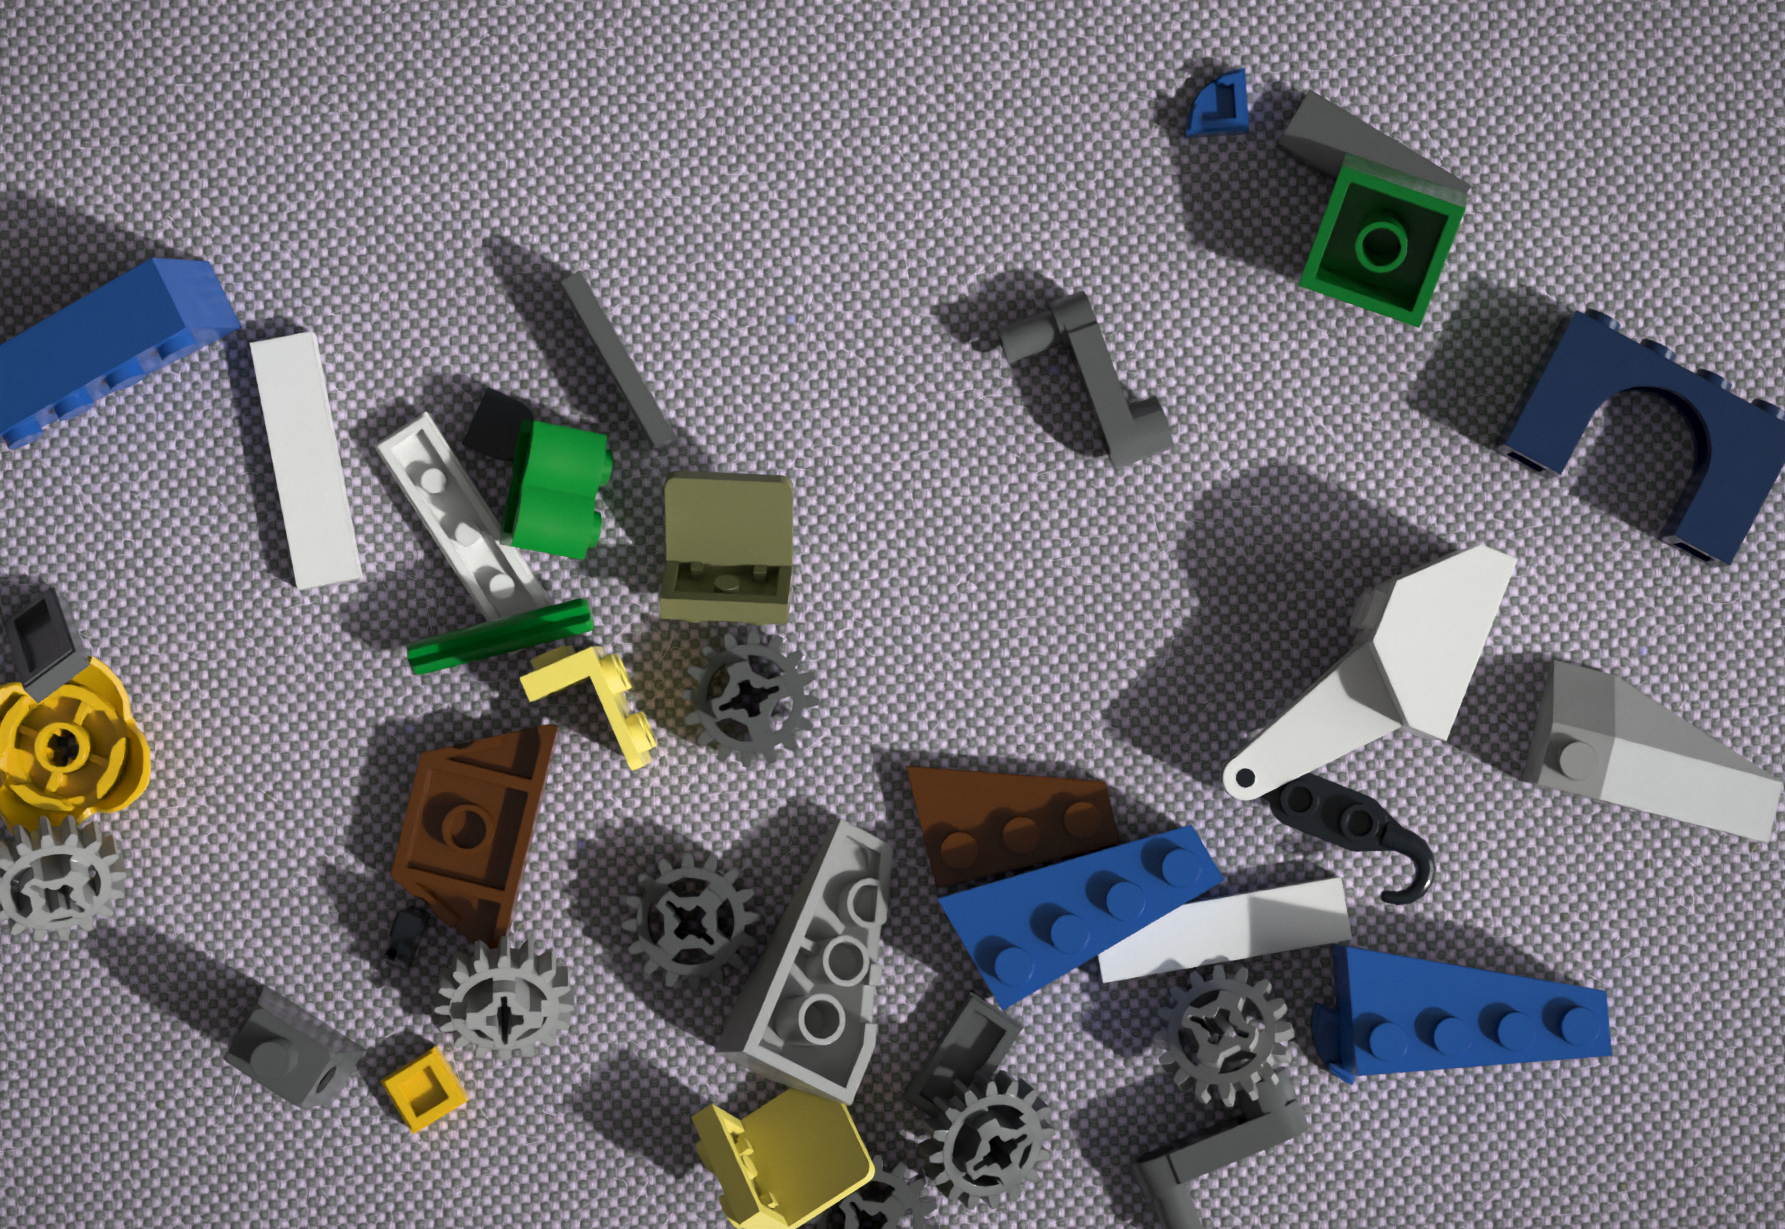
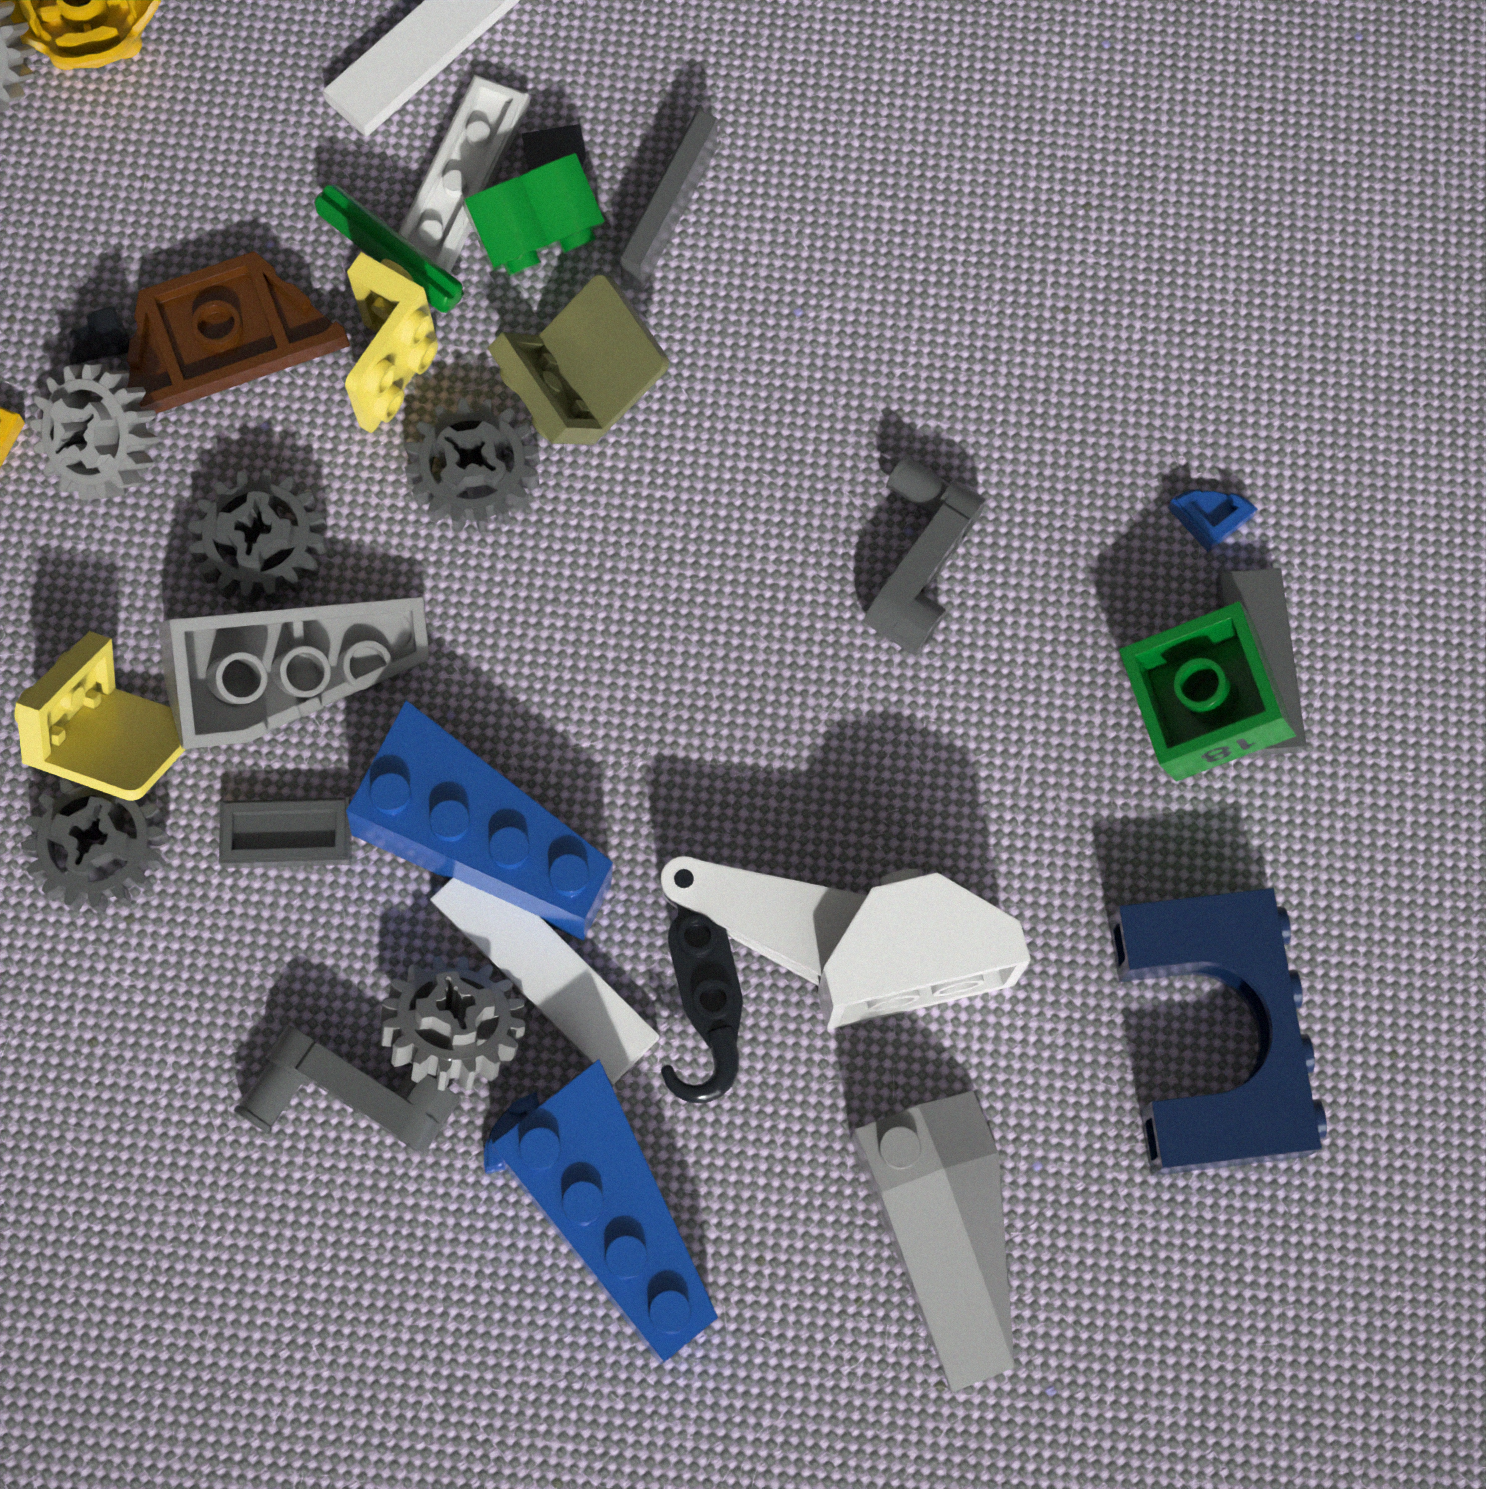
camera: 50 degrees right, 15 degrees down
(982, 1144) = (205, 877): dark grey gear -> none
(1005, 821) = (511, 724): reddish brown wing -> none

